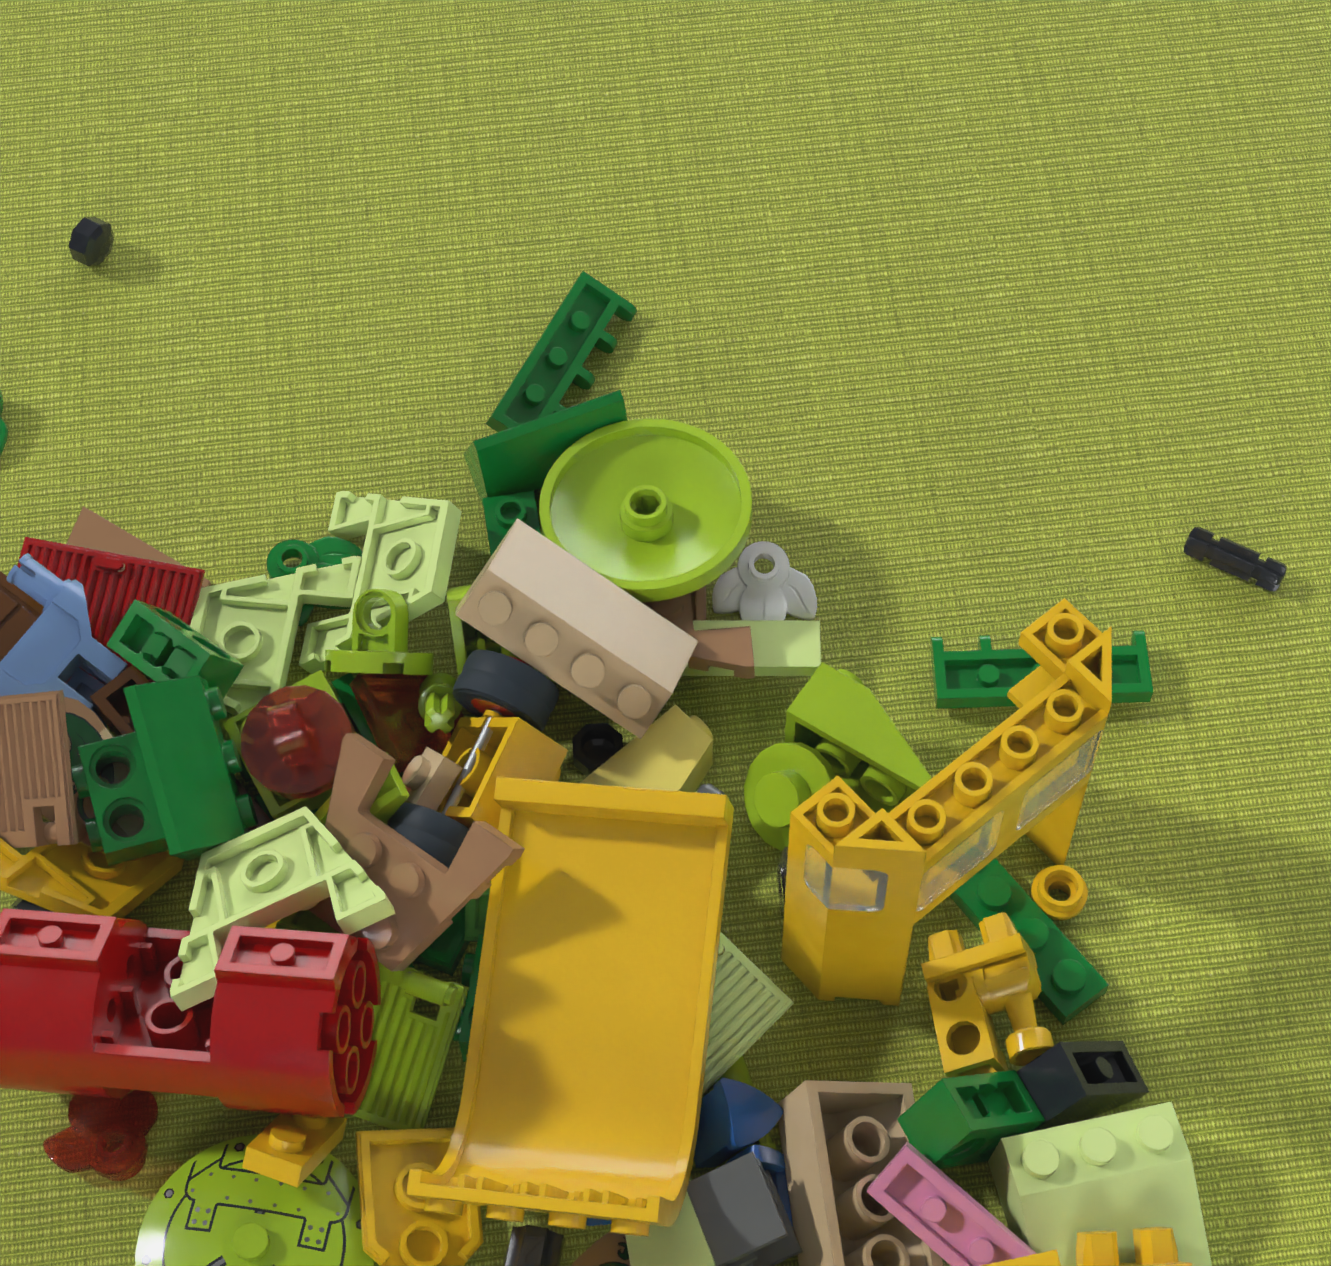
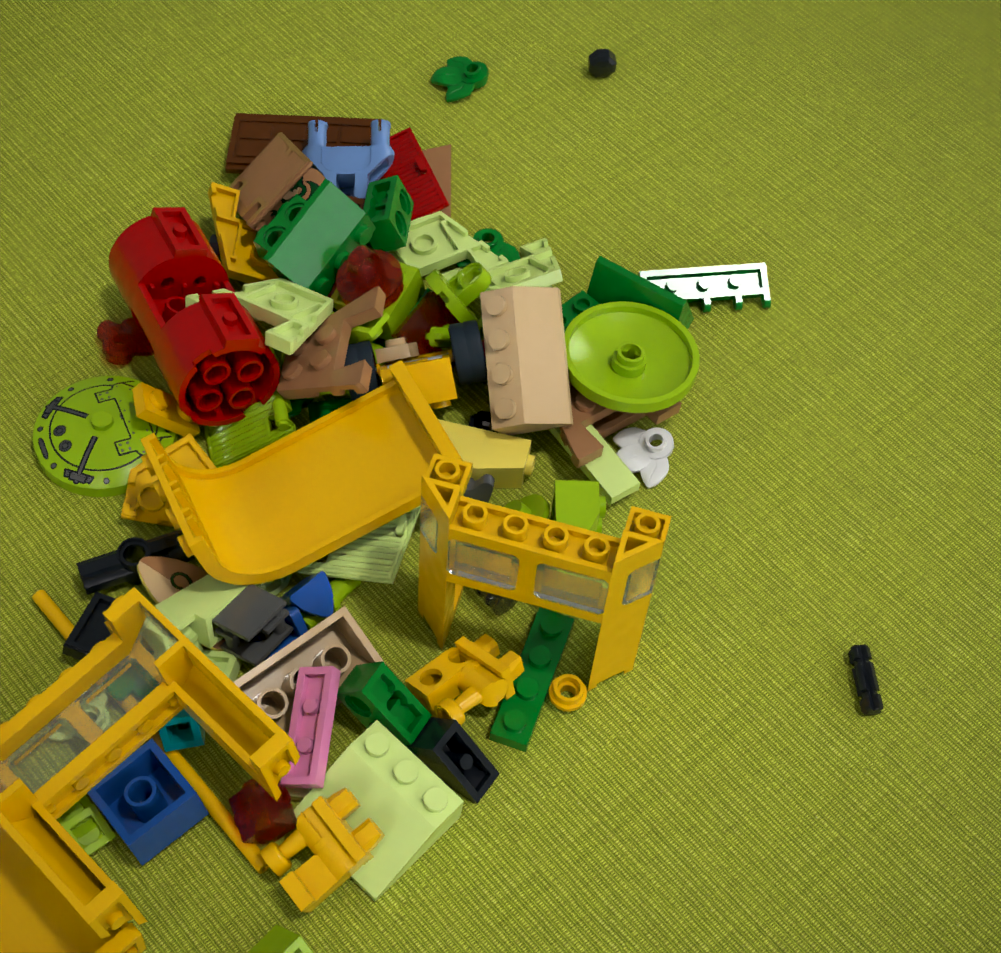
camera: 50 degrees right, 5 degrees down
(987, 675) = (704, 618): green hinge -> none

